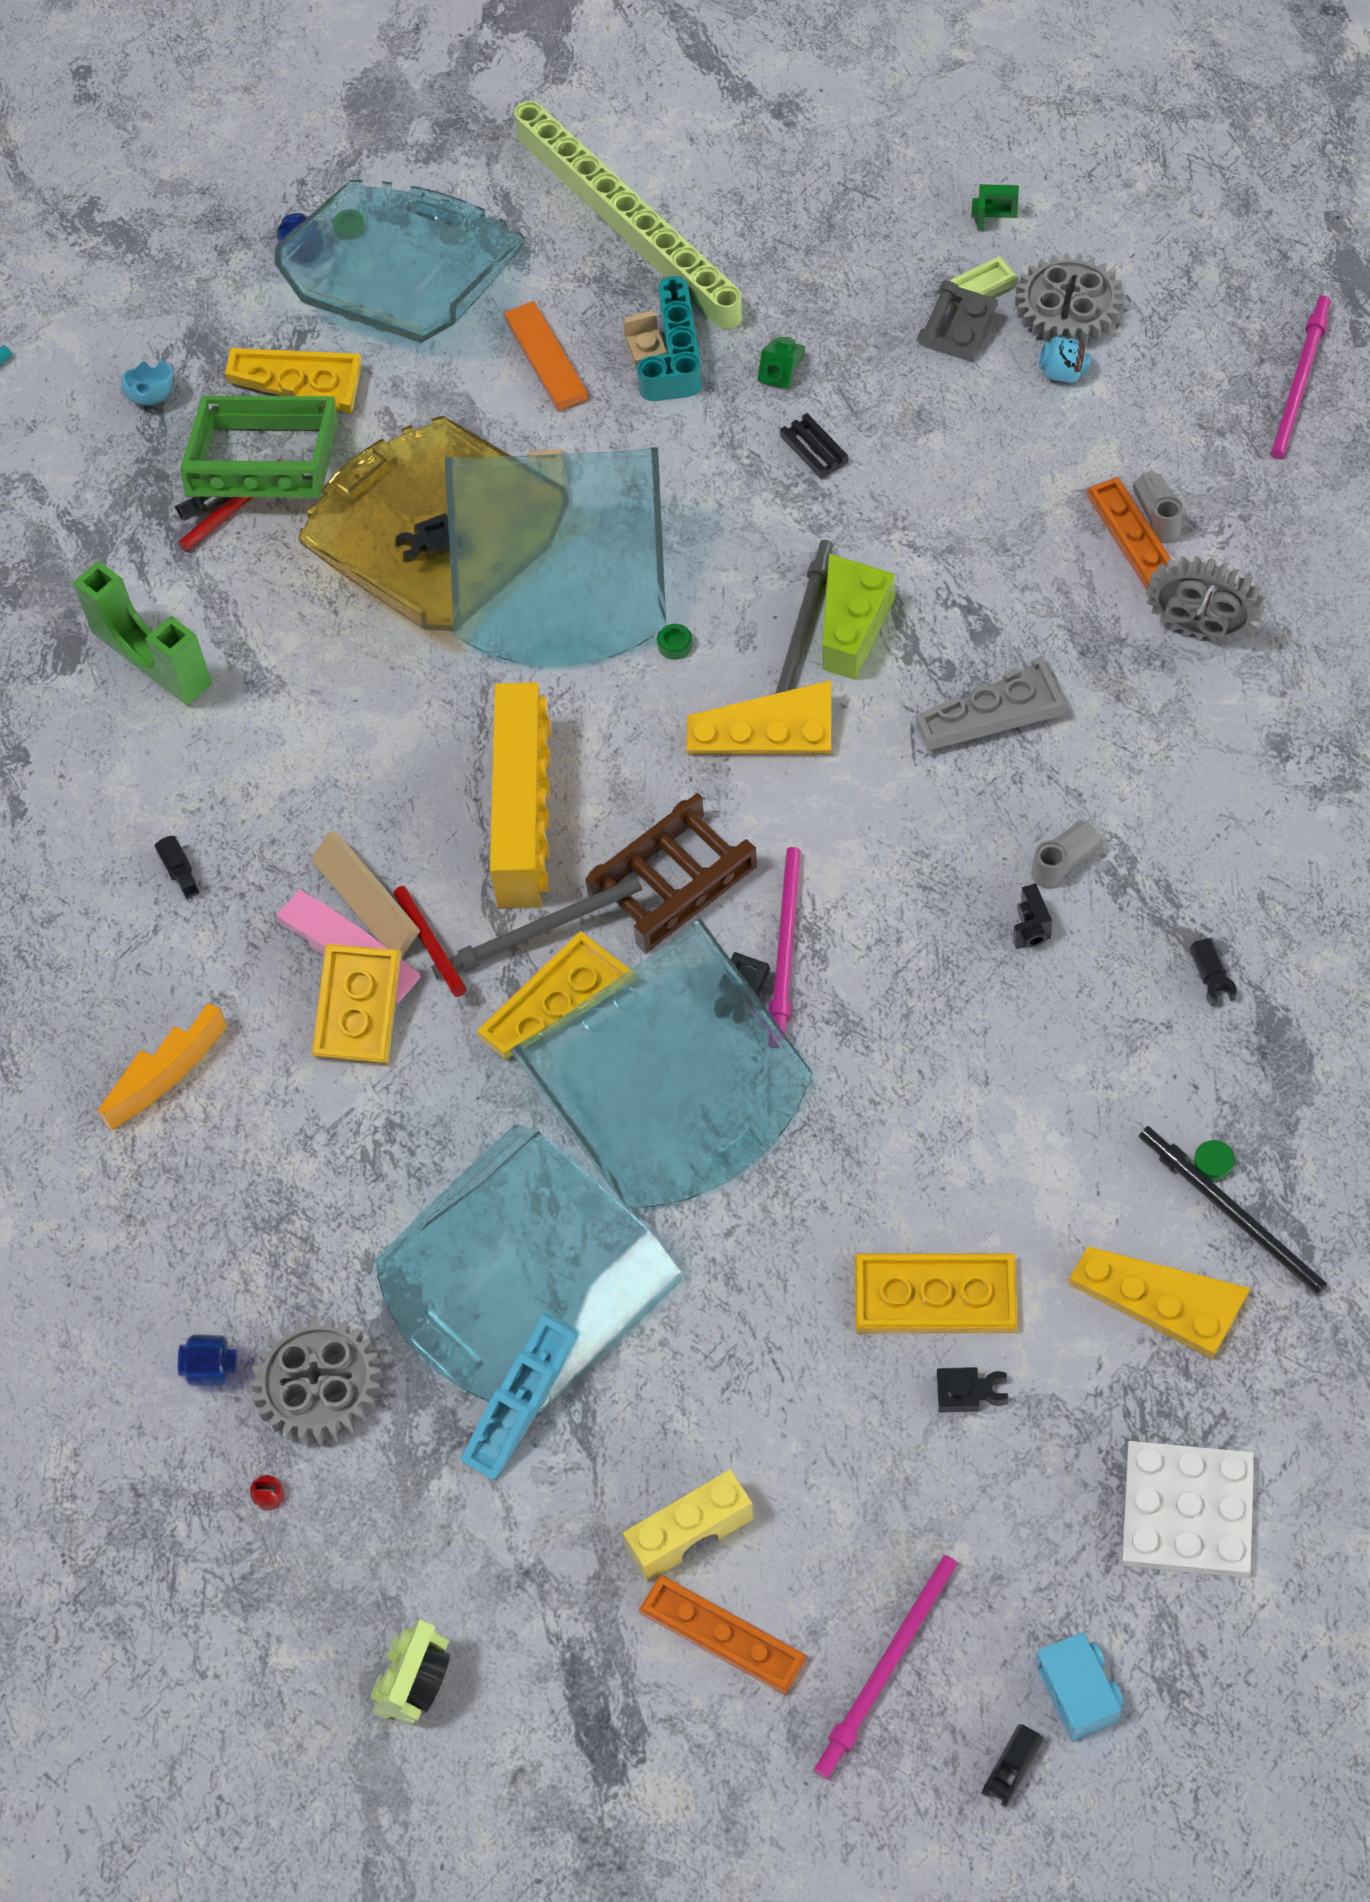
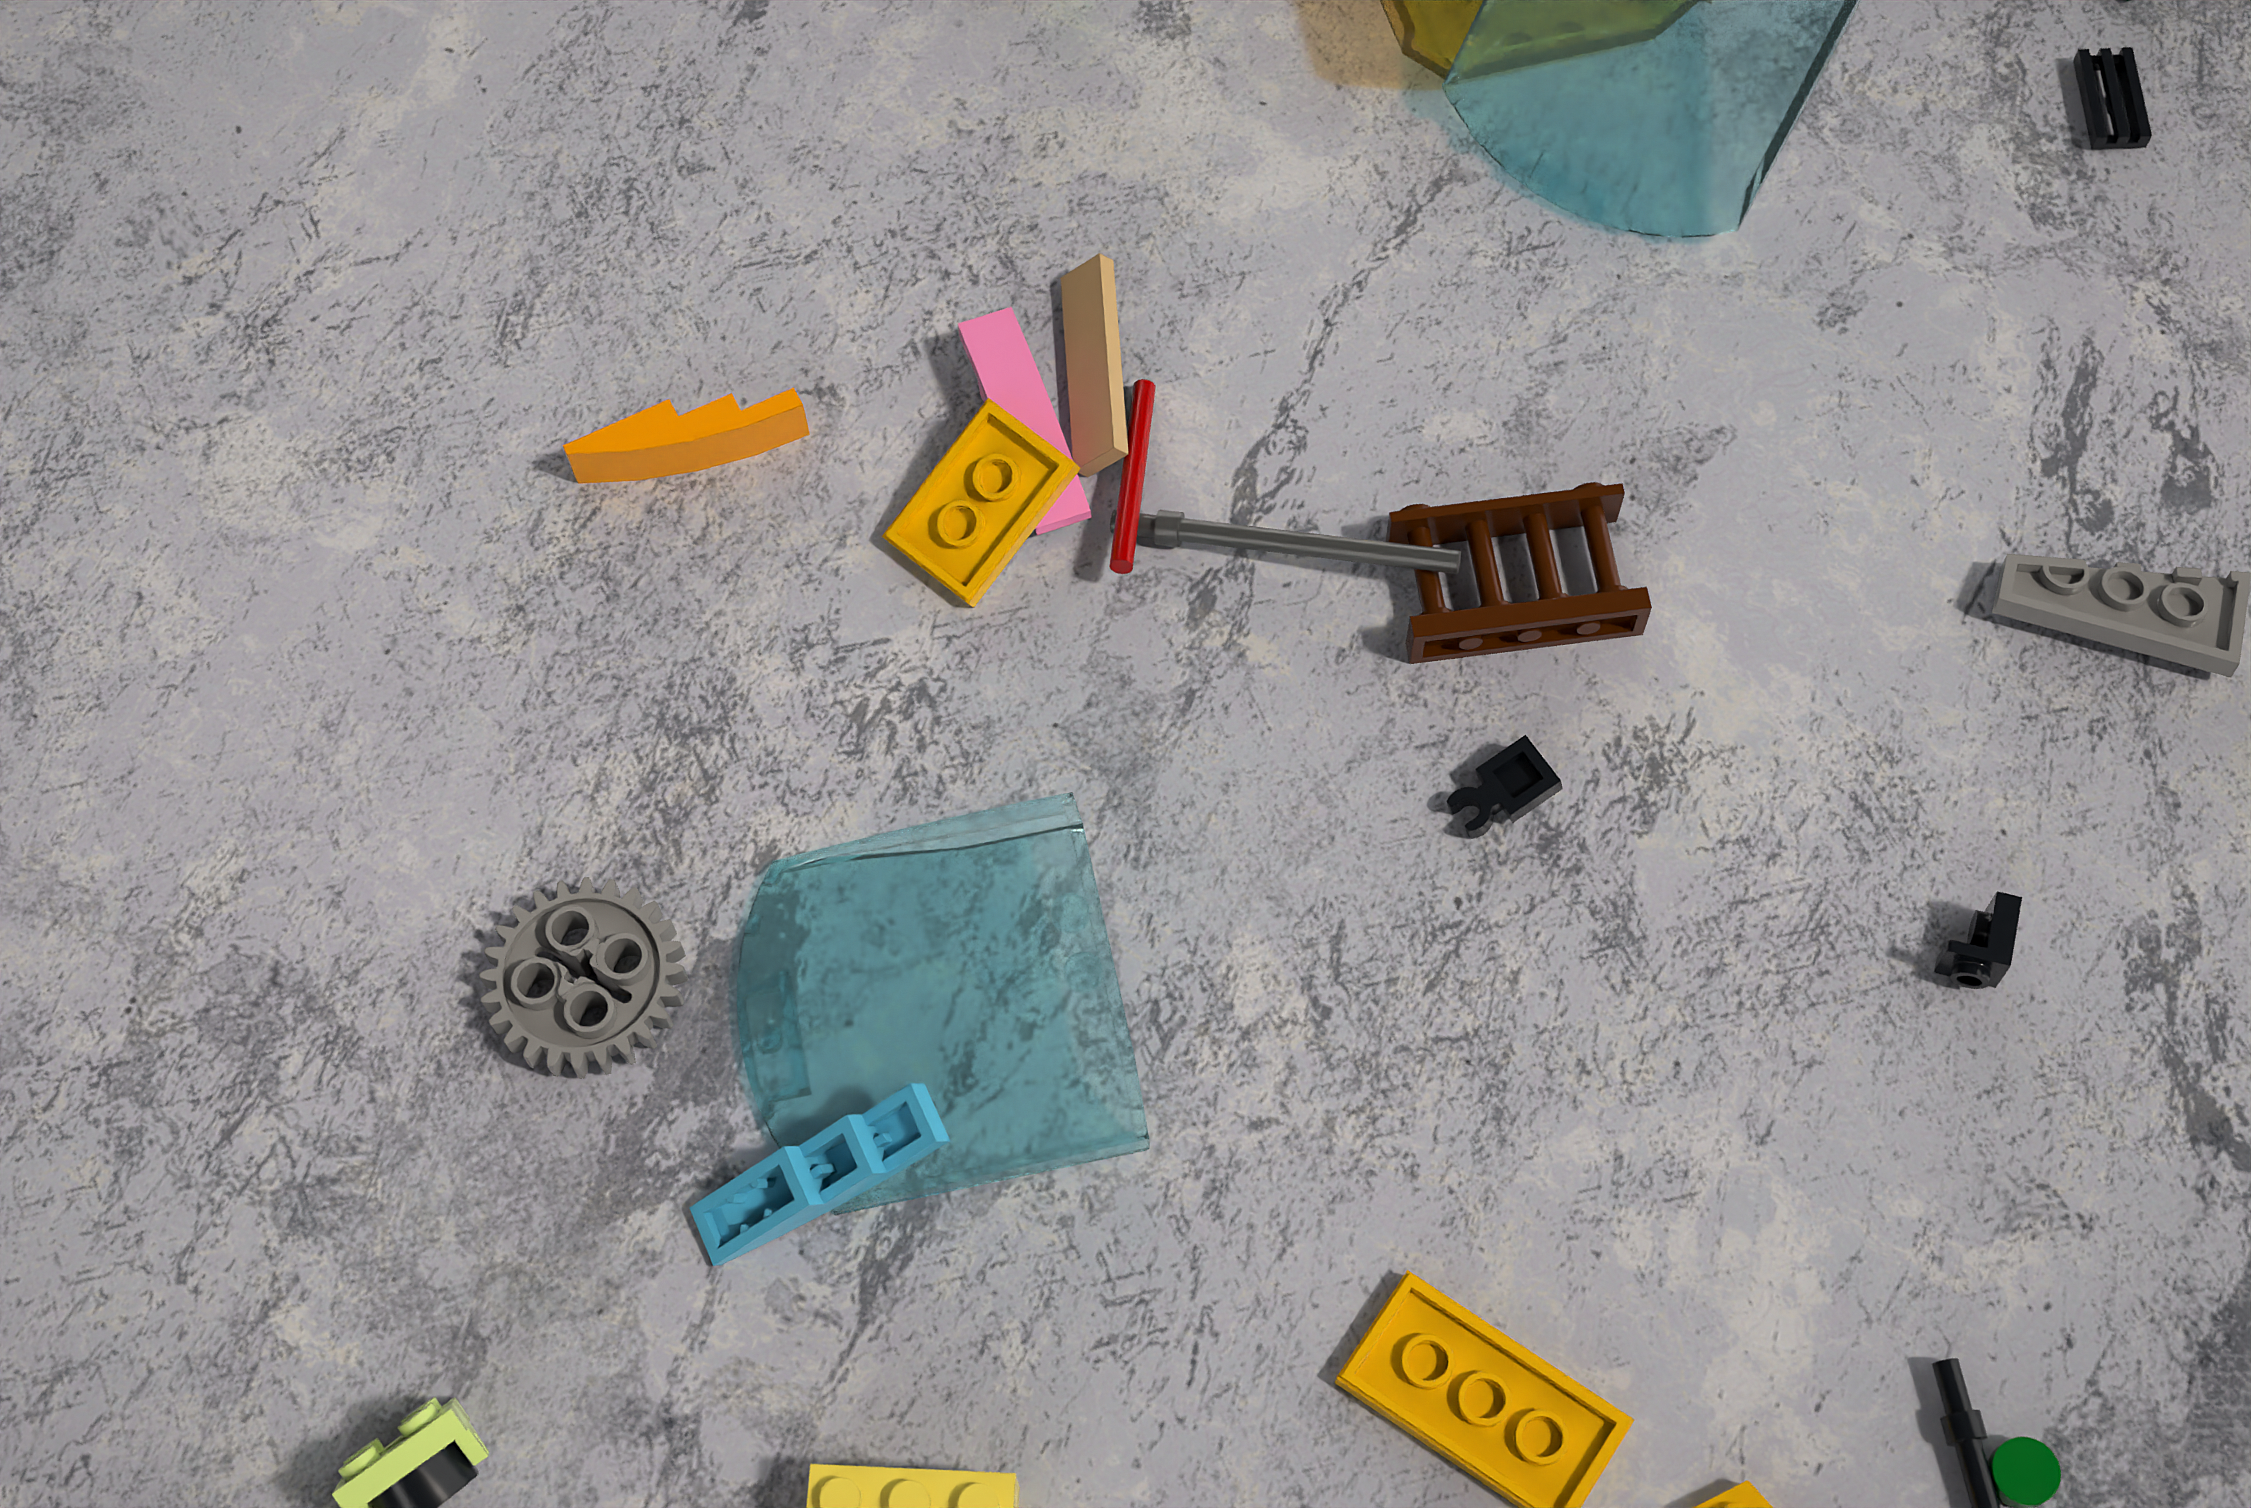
camera: 30 degrees right, 5 degrees up
(177, 864) = (889, 187): black bar -> none
(206, 1360) = (467, 860): clear blue head -> none
(266, 1499) = (414, 1096): red hinge -> none
(520, 795) = (1378, 347): yellow brick -> none
(555, 990) = (1254, 647): yellow wing -> none
(670, 1074) = (1320, 854): clear light blue windscreen -> none
(674, 641) = (1737, 260): green tile -> none
(773, 724) = (1794, 449): yellow wing -> none
(780, 1006) = (1539, 851): dark pink bar -> none
(817, 575) = (1995, 279): dark grey bar -> none
(854, 613) = (2013, 359): lime wedge -> none
(1063, 852) = (2096, 877): light grey piece -> none
(1212, 970) = (2207, 1184): black bar -> none

